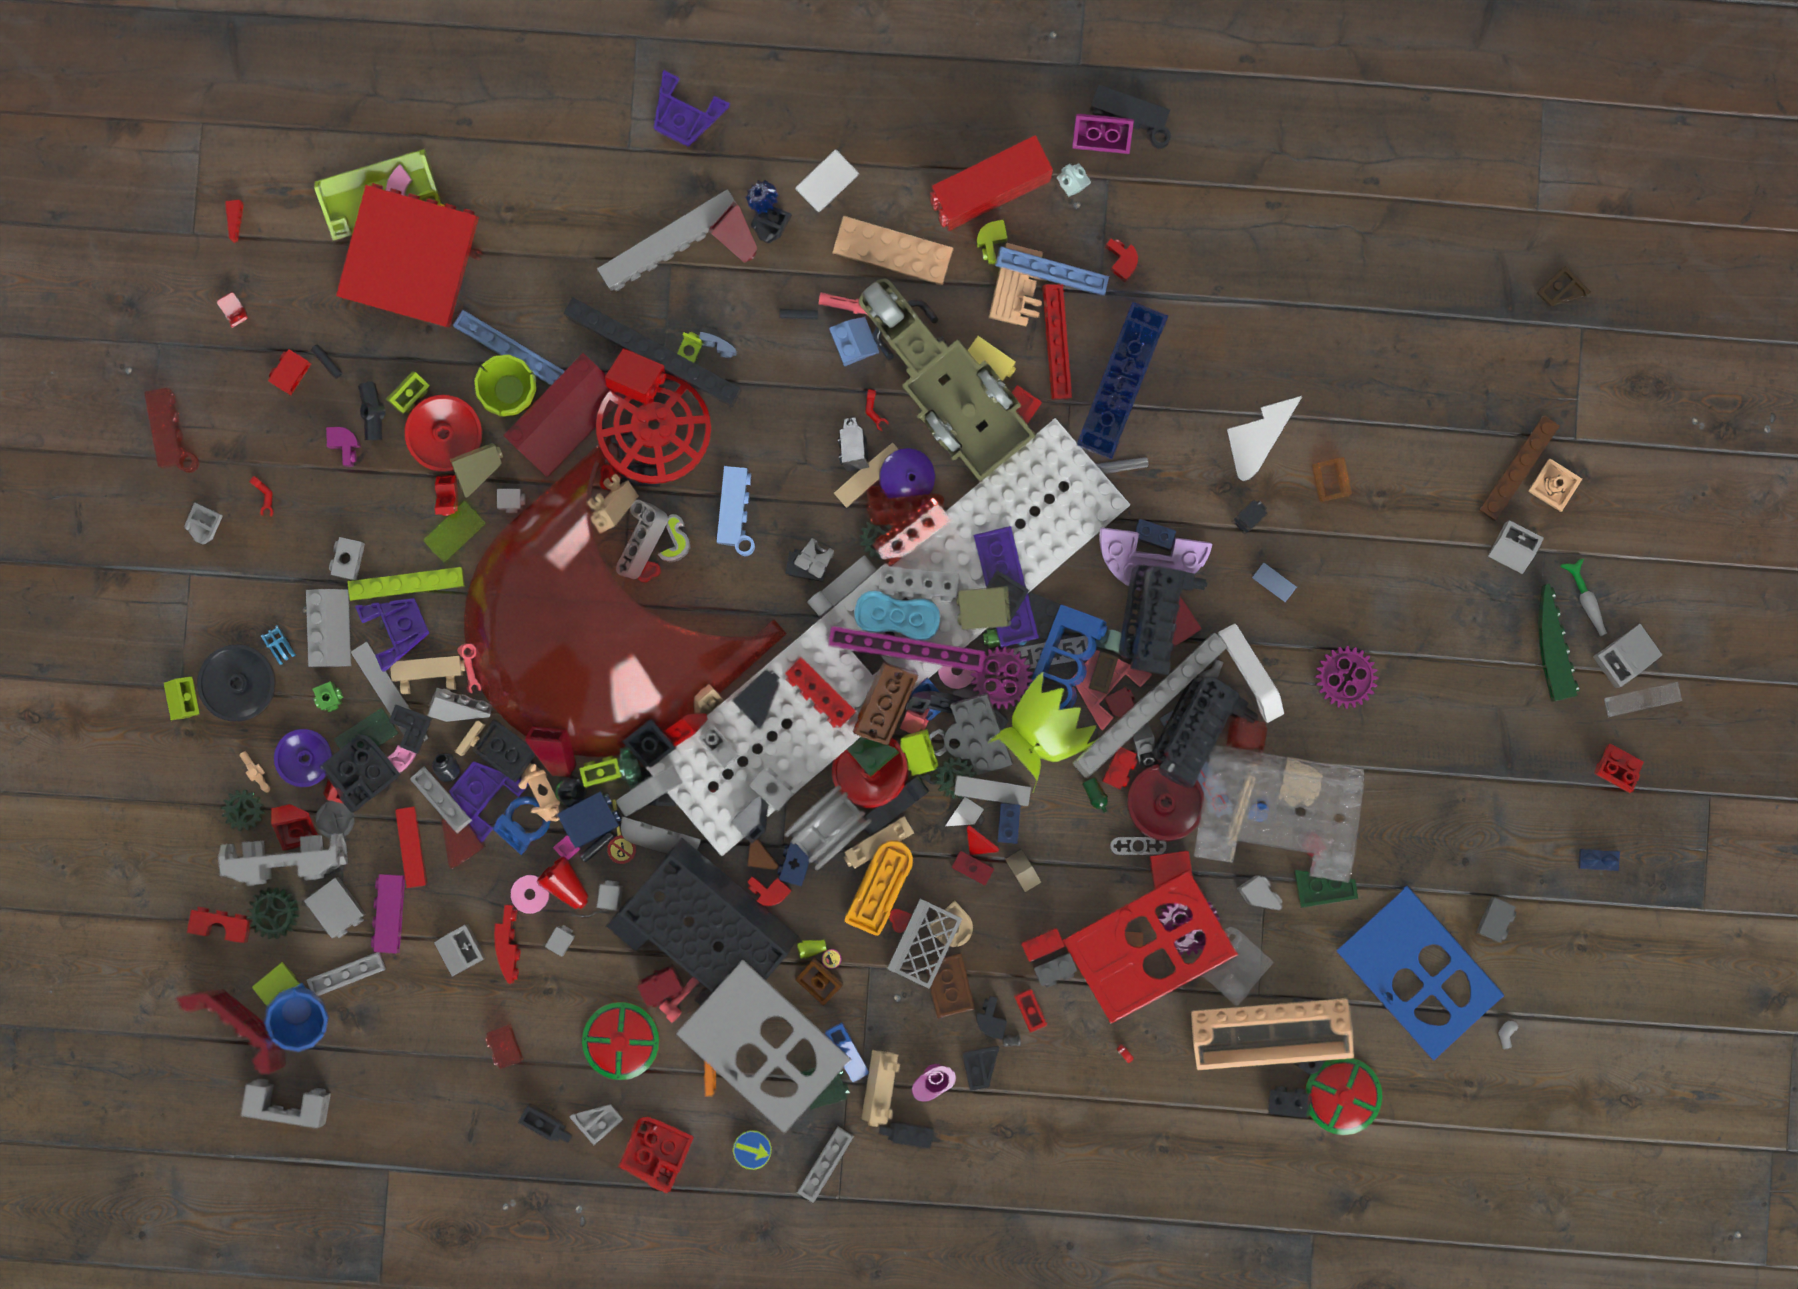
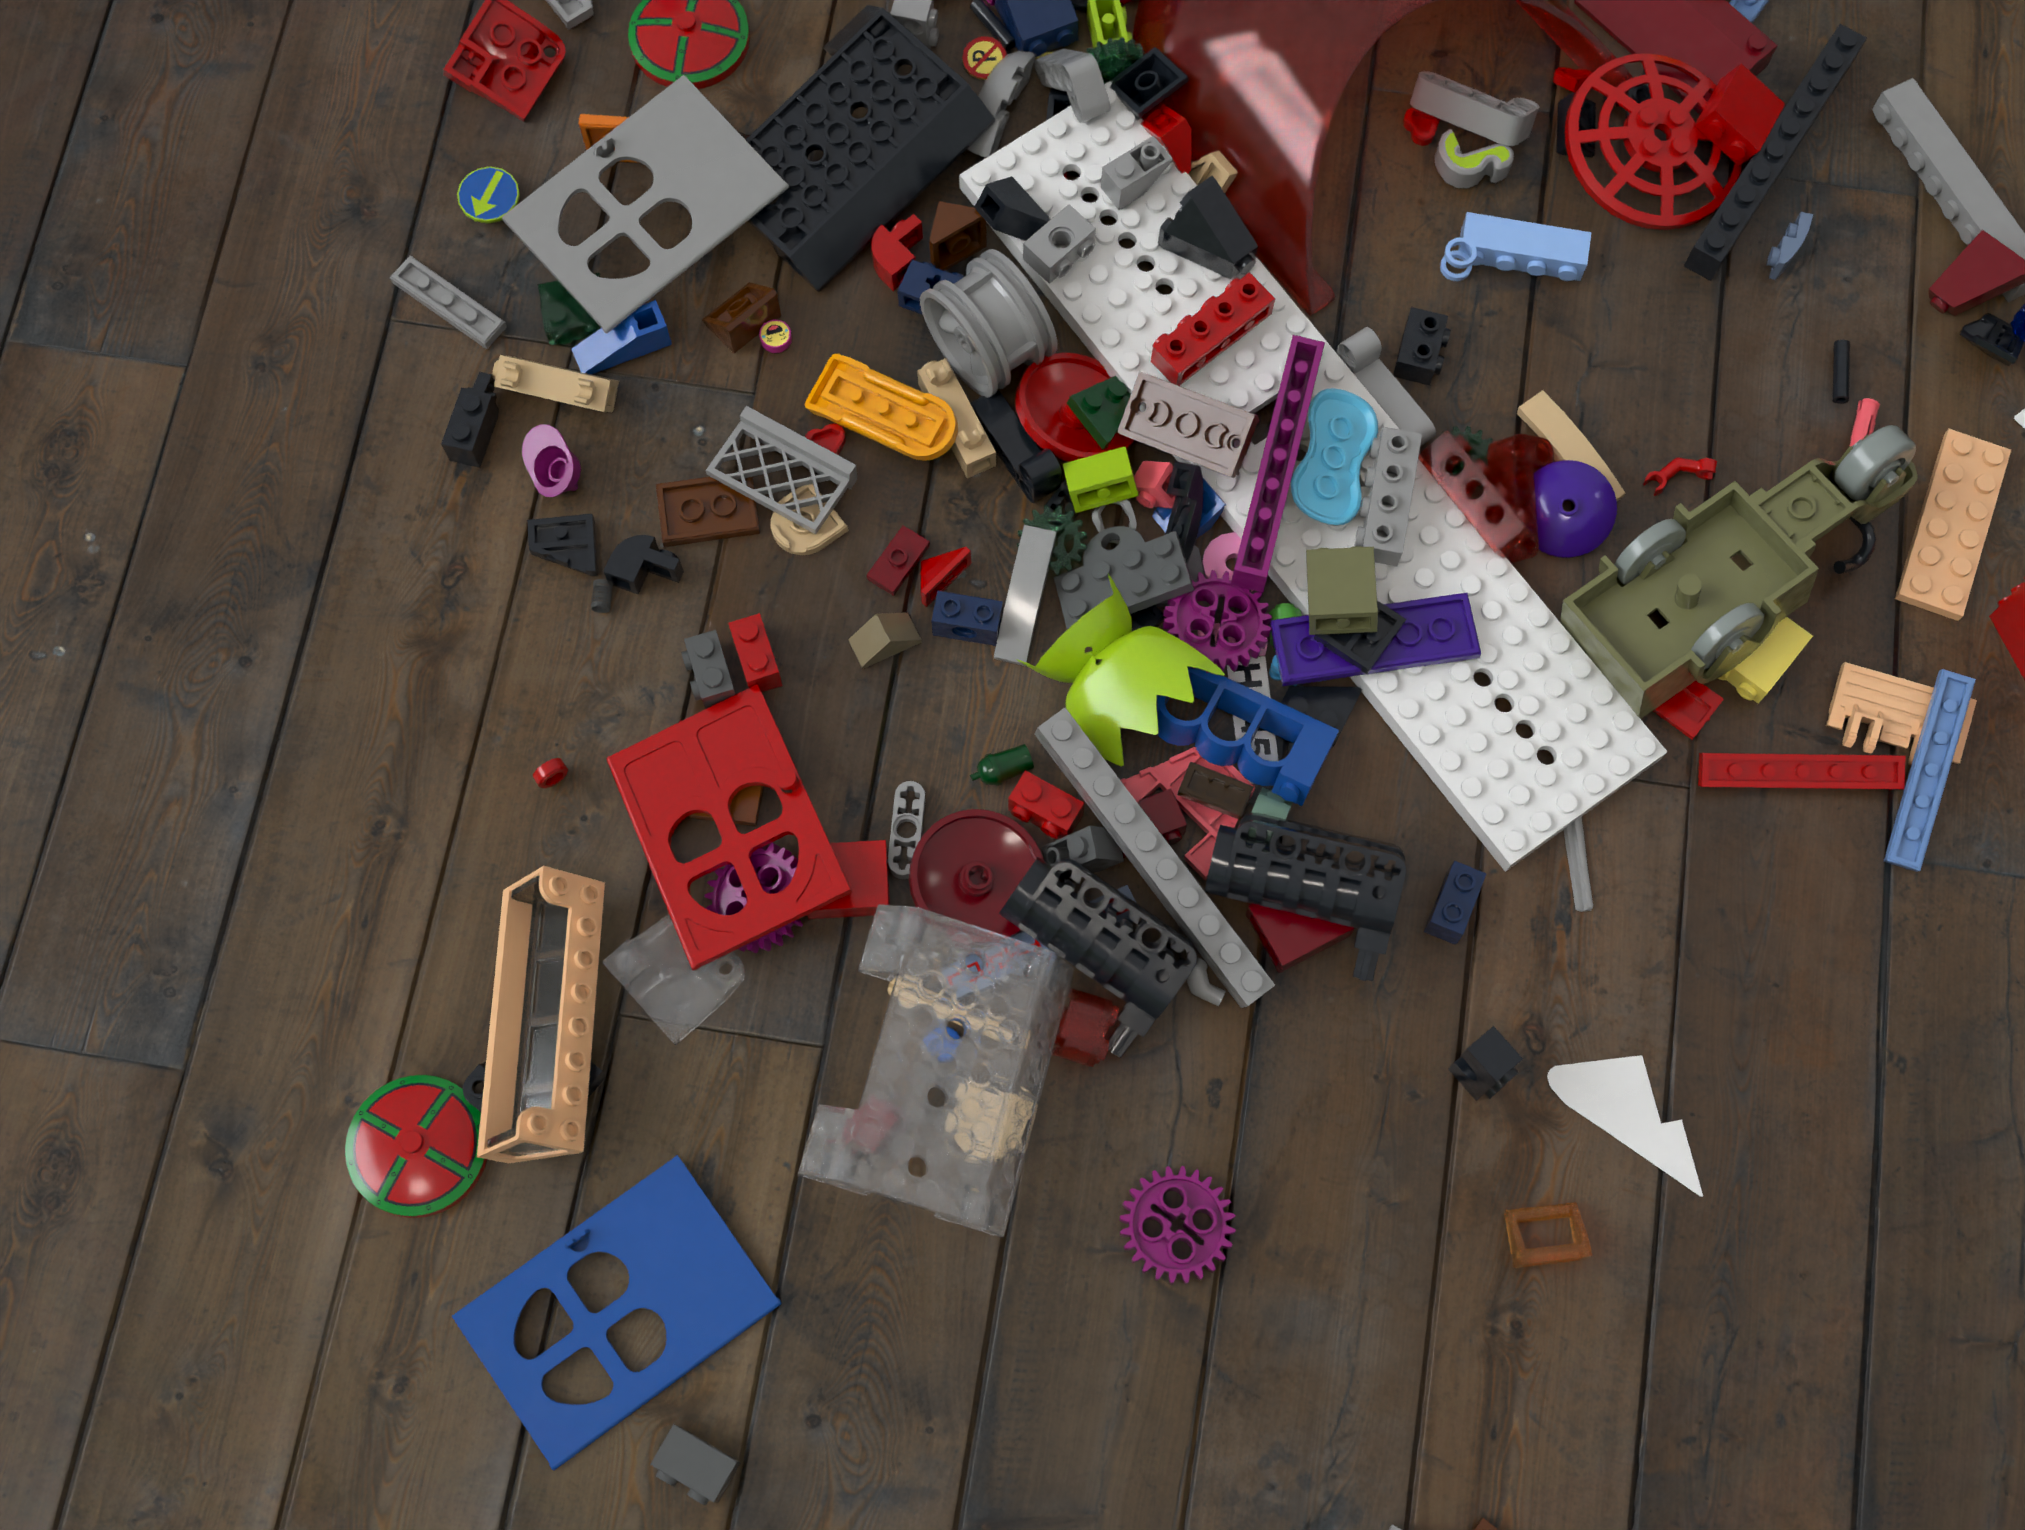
camera: 90 degrees right, 15 degrees down
(614, 506) = (1532, 58): tan brick -> none
(657, 988) = (761, 76): dark red brick -> none
(670, 1008) = (729, 103): coral brick -> none
(693, 340) = (1792, 208): lime bracket -> none
(809, 948) = (796, 304): lime cone -> none
(814, 562) = (1430, 344): light grey piece -> none
(853, 340) = (1796, 439): medium blue slope -> none
(853, 446) = (1620, 426): hinge -> none
(965, 814) = (991, 557): white sticker -> none
(988, 236) = (1994, 677): lime brick -> none
(1030, 1010) = (646, 623): red brick -> none
(1120, 554) = (1424, 832): lavender plate -> none
(1122, 380) = (1737, 867): clear blue slope -> none
(1127, 259) = (1949, 902): red brick -> none
(1253, 672) = (1193, 1046): white beam -> none
(1257, 893) = (795, 1022): light grey slope -> none
(1274, 582) = (1360, 1109): sand blue slope -> none
(1290, 1103) = (418, 1043): black brick -> none
(1321, 891) = (786, 1136): dark green wing -> none
(1505, 1033) = (482, 1464): light grey arm -> none

